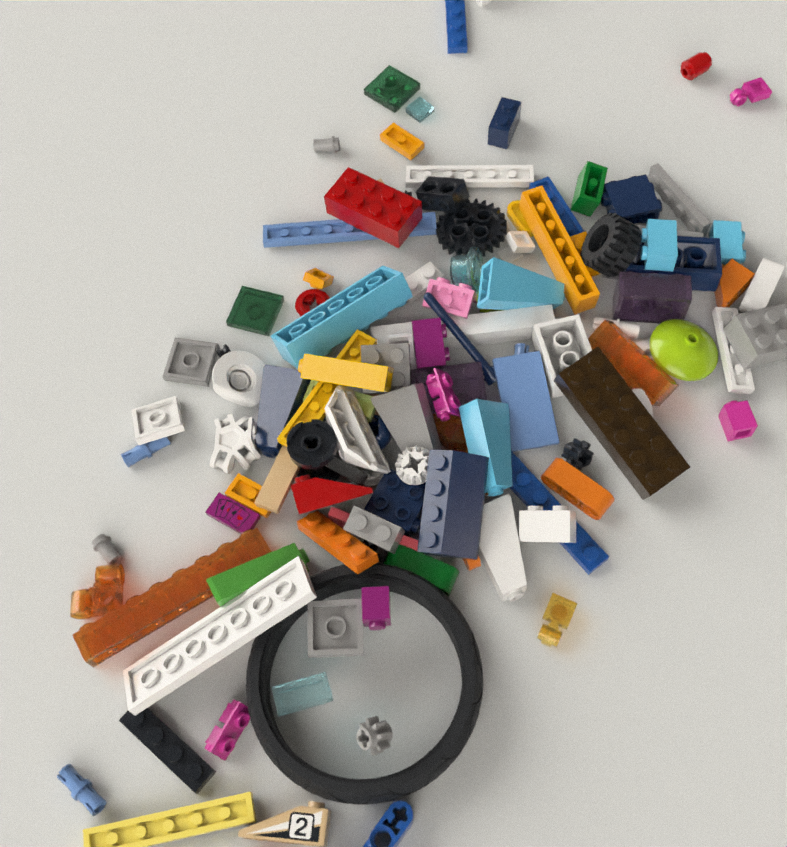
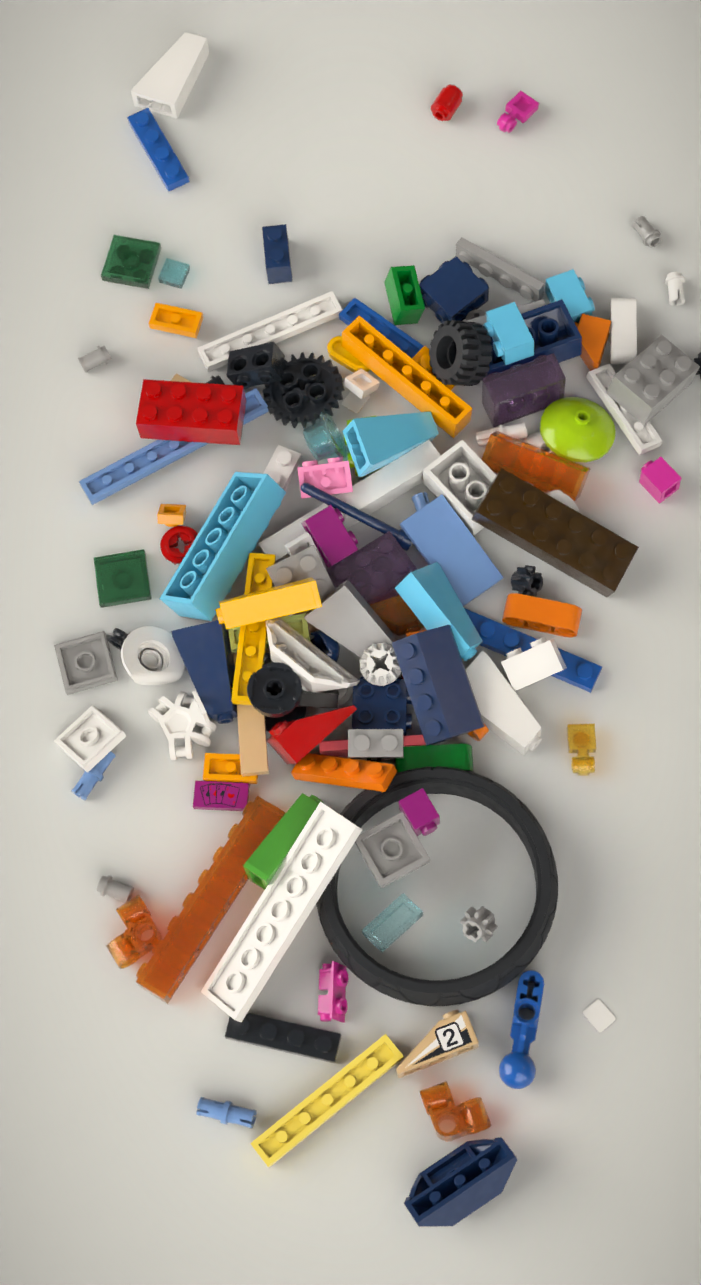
camera: 25 degrees left, 5 degrees up
(440, 385) = (365, 574): dark pink hinge -> none

